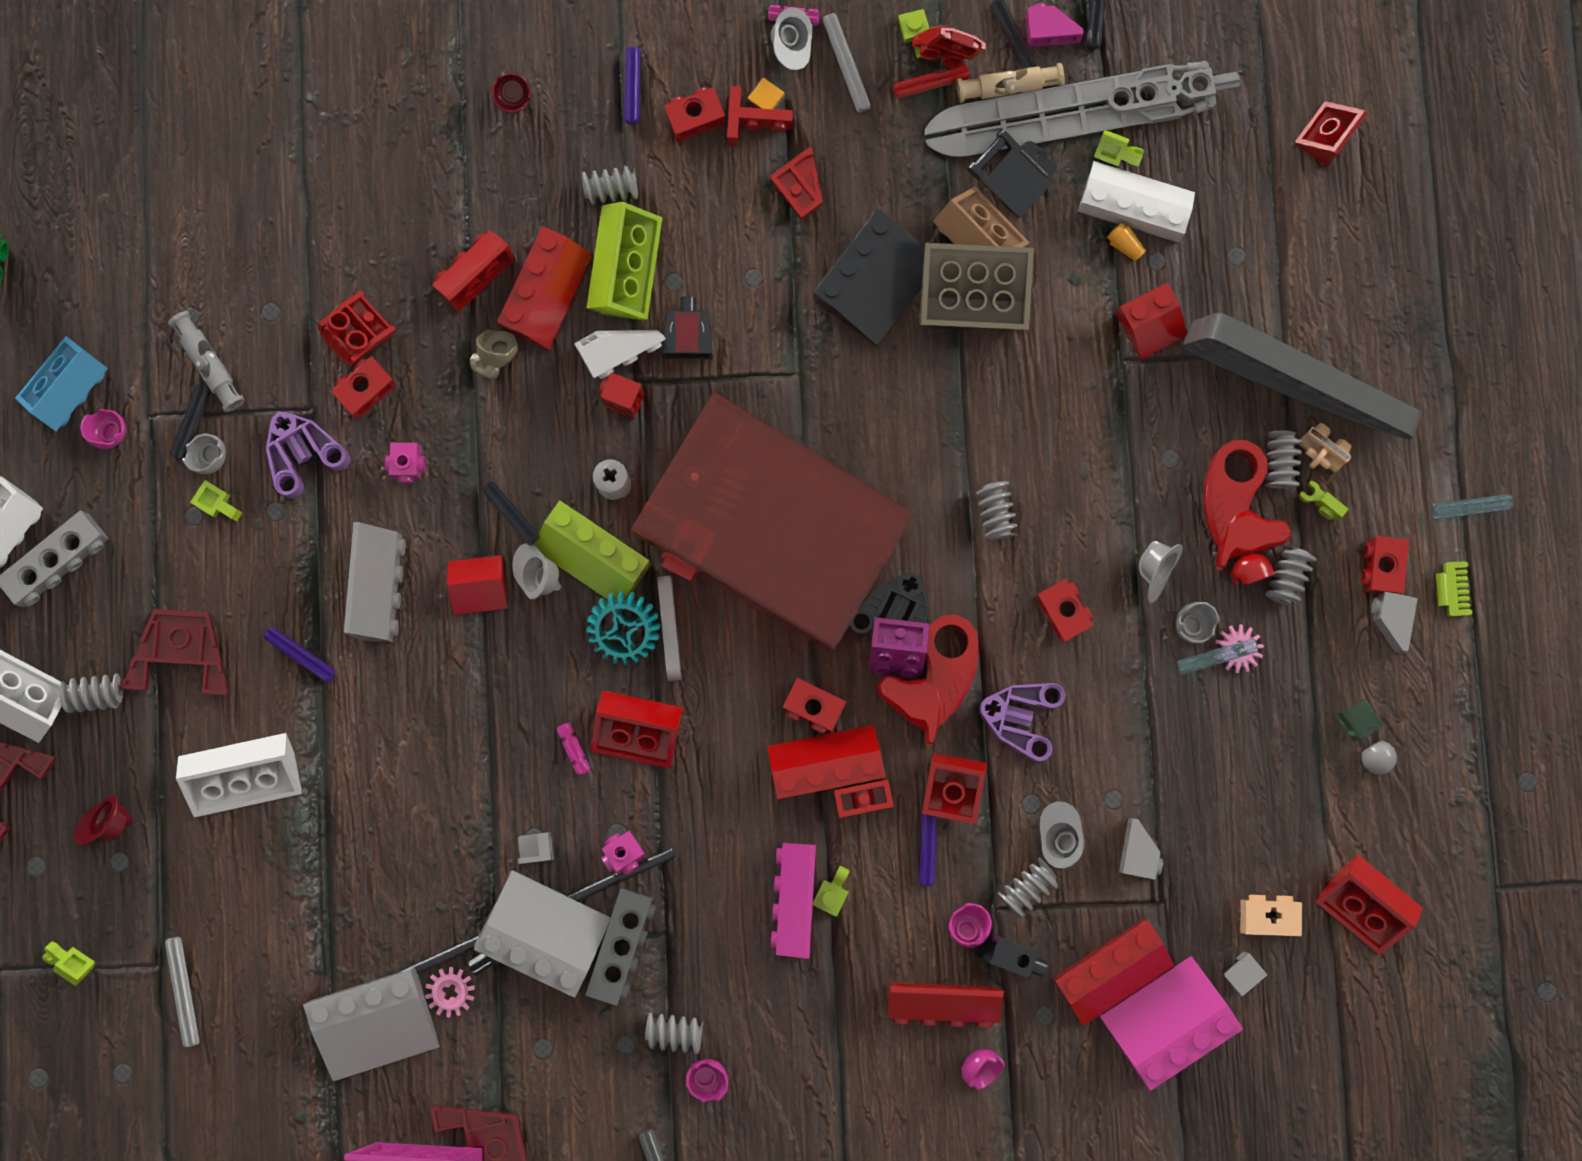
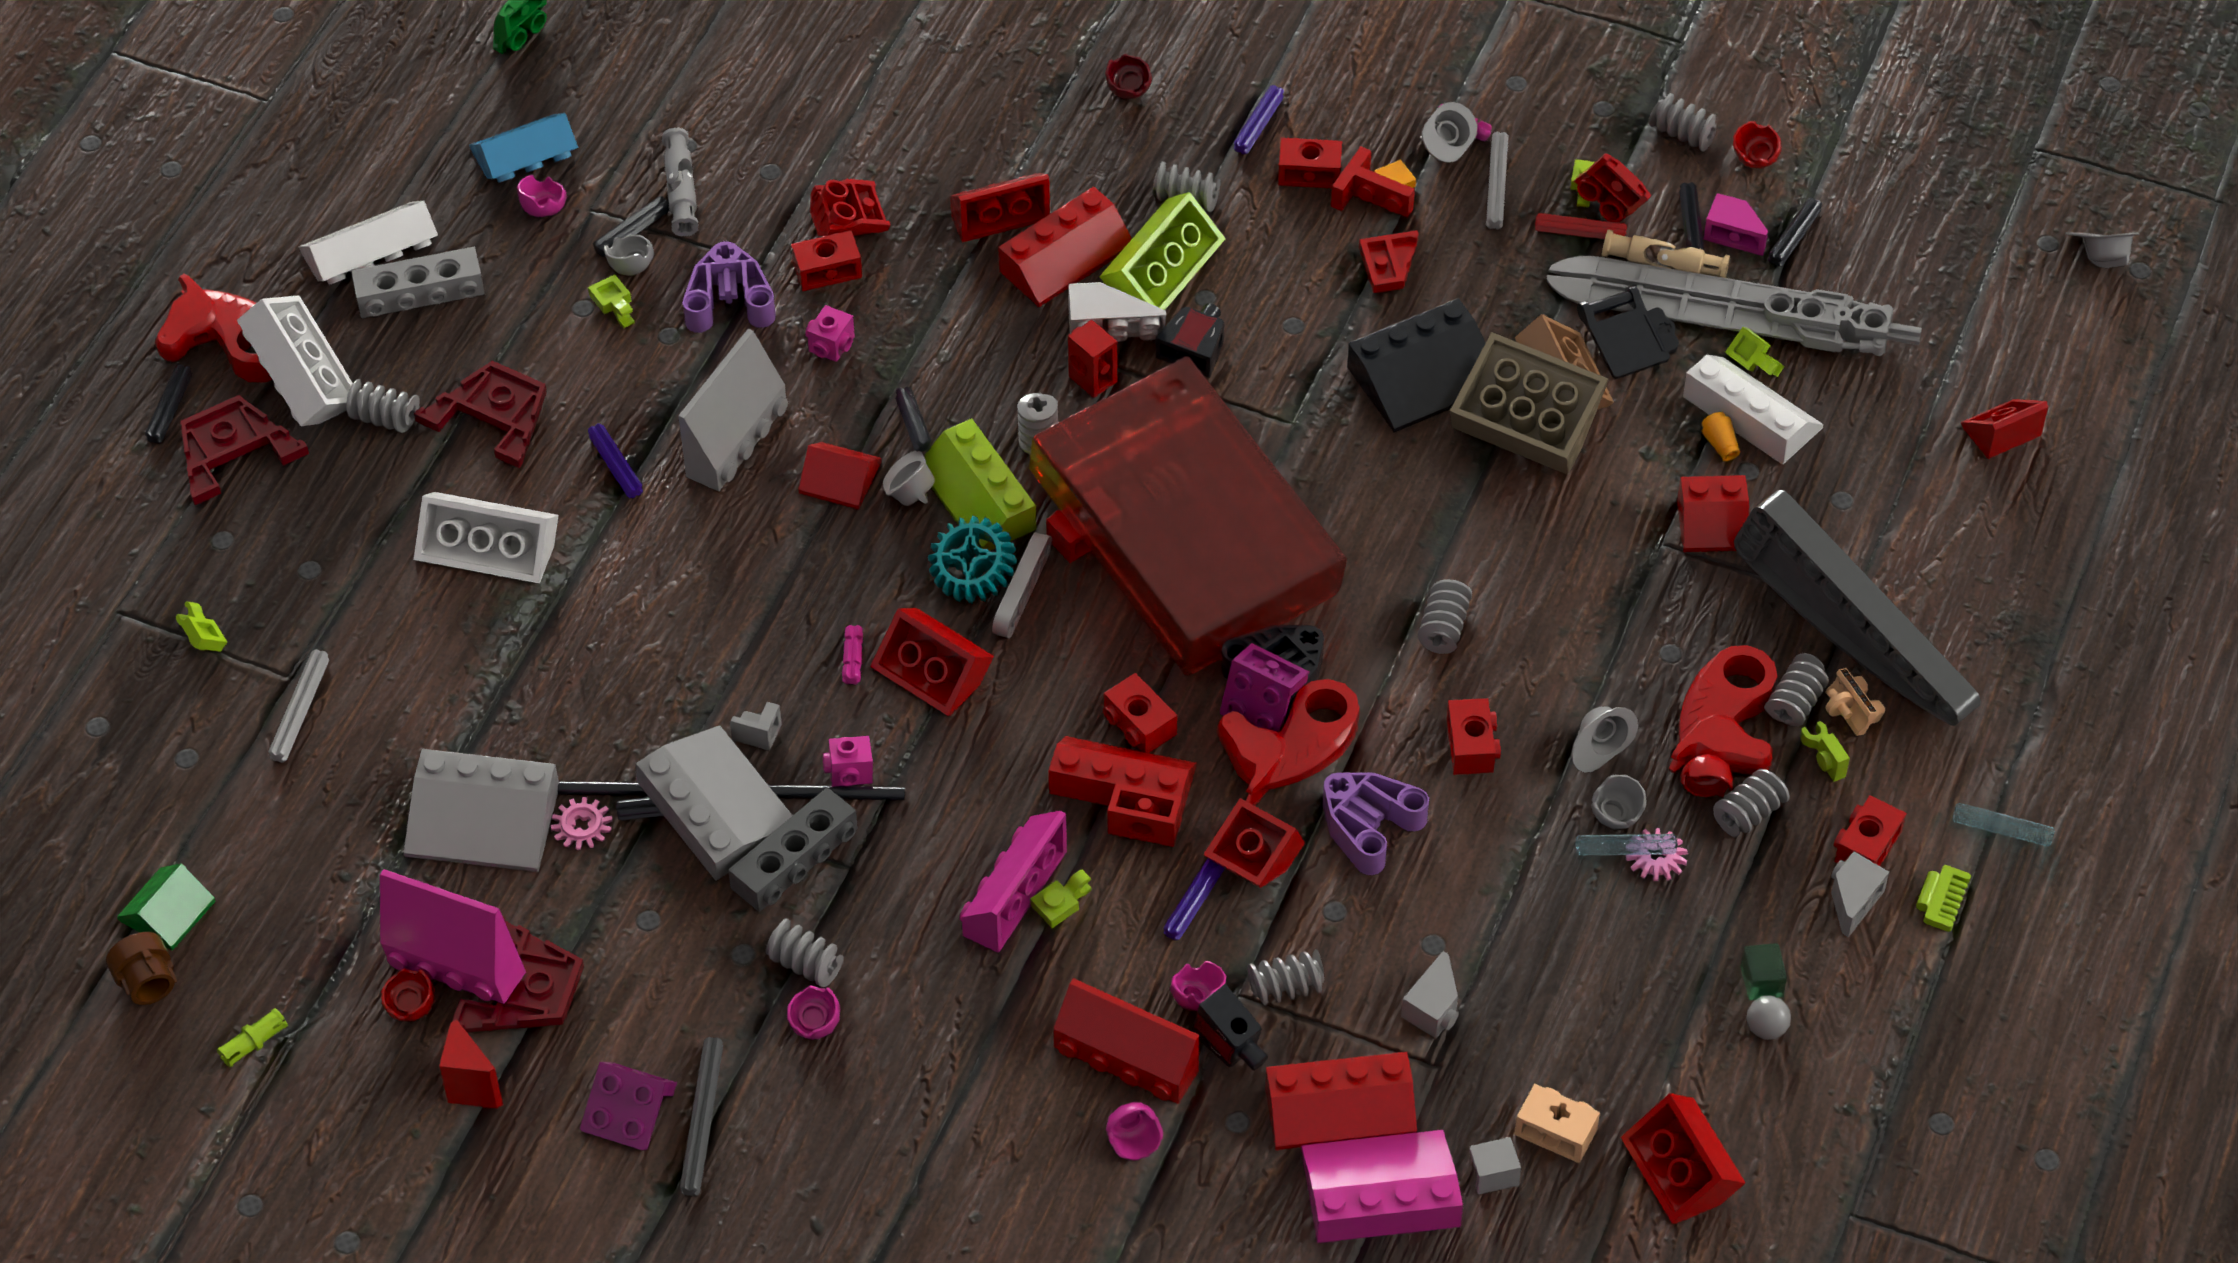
camera: 25 degrees right, 30 degrees down
(103, 821) = (325, 524): dark red piece -> none
(493, 352) = (977, 279): dark tan hair -> none
(1061, 835) = (1352, 939): light grey piece -> none

